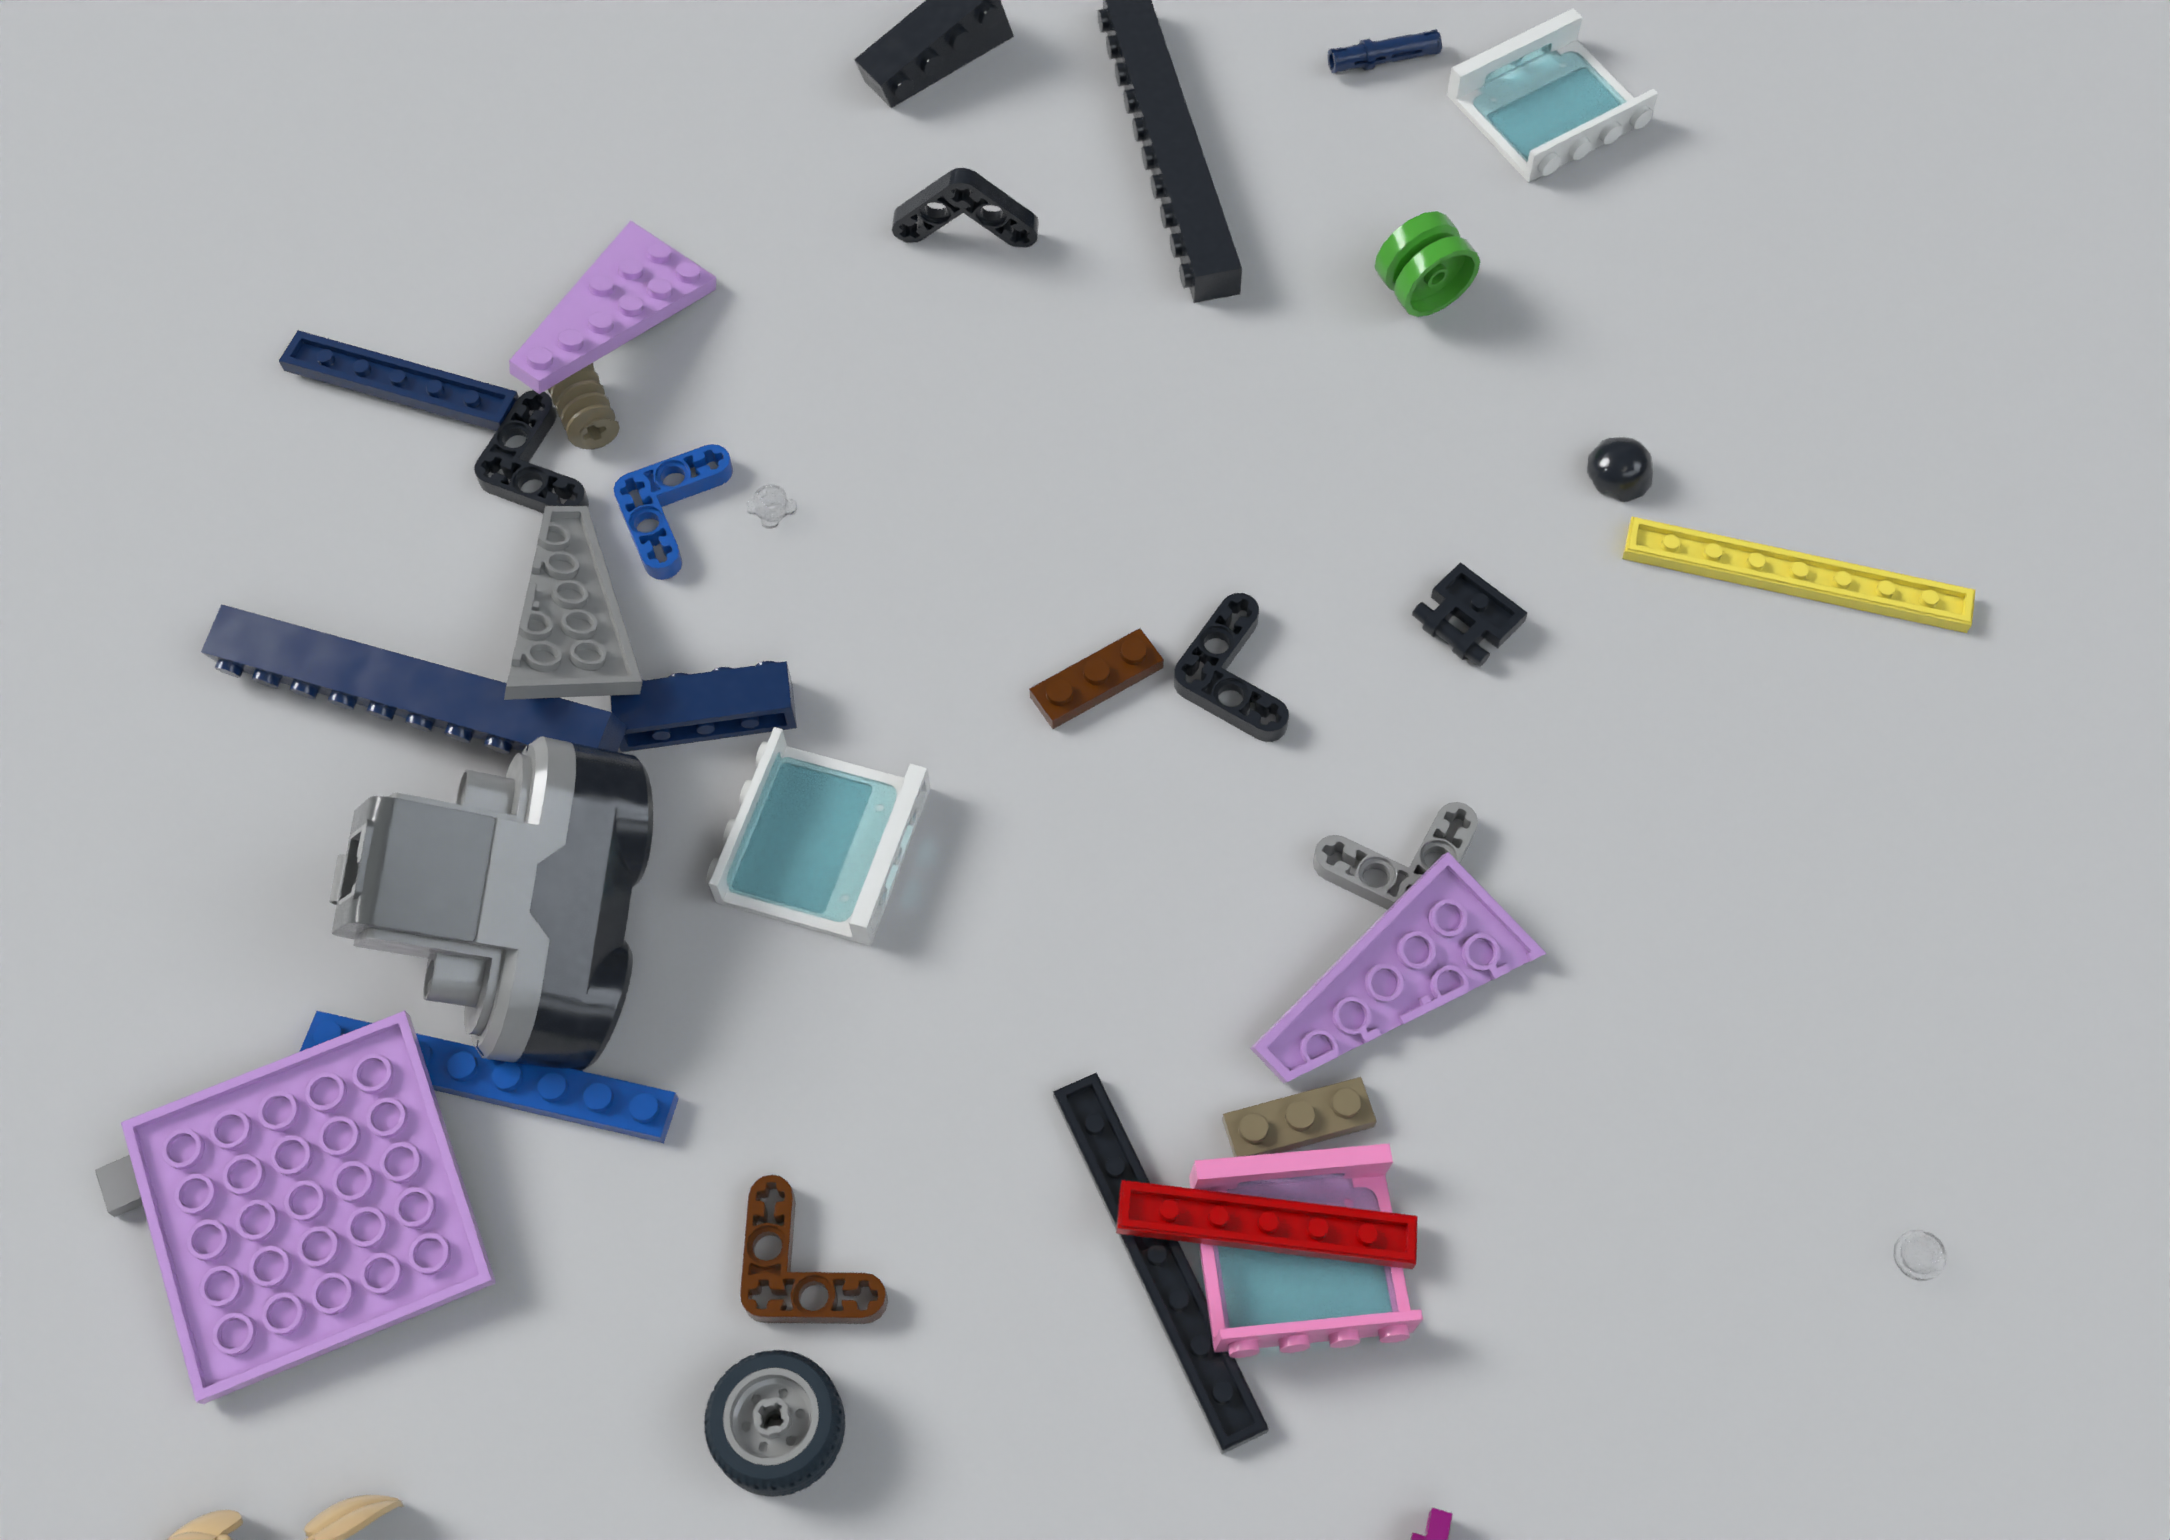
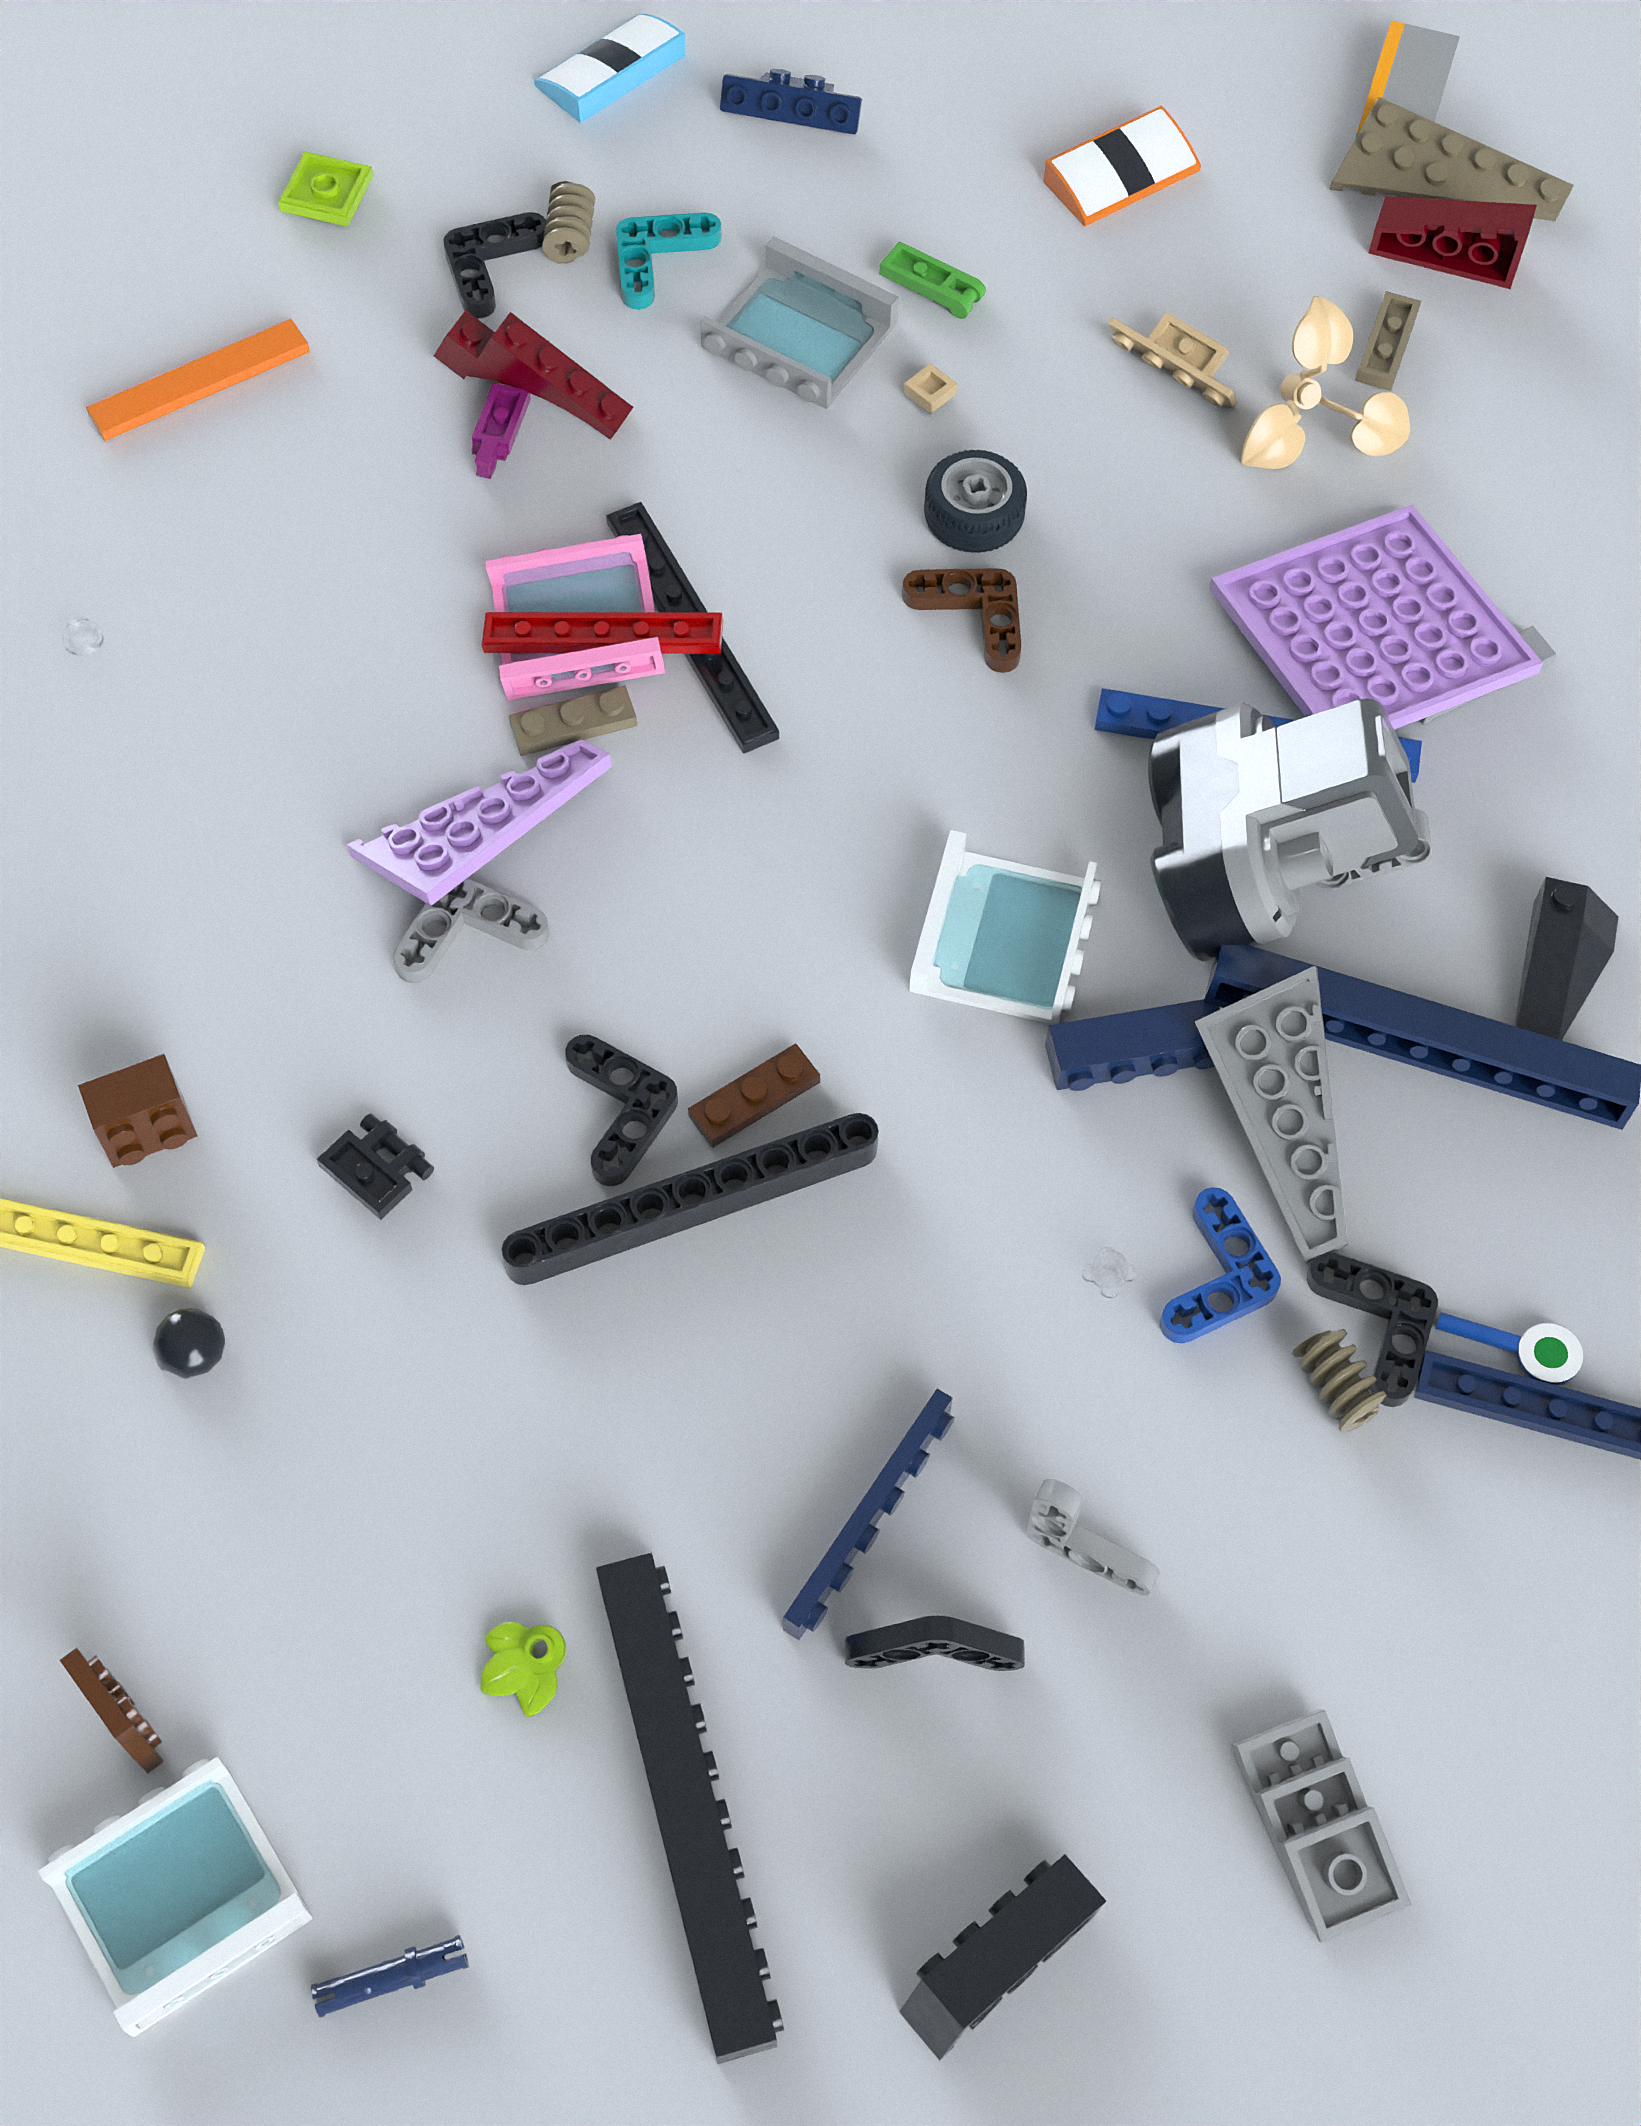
camera: 175 degrees right, 0 degrees up
(235, 797) = (1565, 954): none -> black wedge
(393, 427) = (1543, 1352): none -> piece
(617, 299) = (1324, 1520): lavender wing -> none
(682, 120) = (1321, 1825): none -> light grey slope
(847, 289) = (1055, 1528): none -> light grey beam
(1009, 319) = (860, 1530): none -> dark blue plate
(1146, 586) = (681, 1215): none -> black beam
(1298, 232) = (518, 1669): none -> lime plate
(1427, 263) = (373, 1574): bright green wheel -> none
(1623, 165) = (114, 1708): none -> reddish brown plate
(1712, 644) = (138, 1111): none -> reddish brown brick

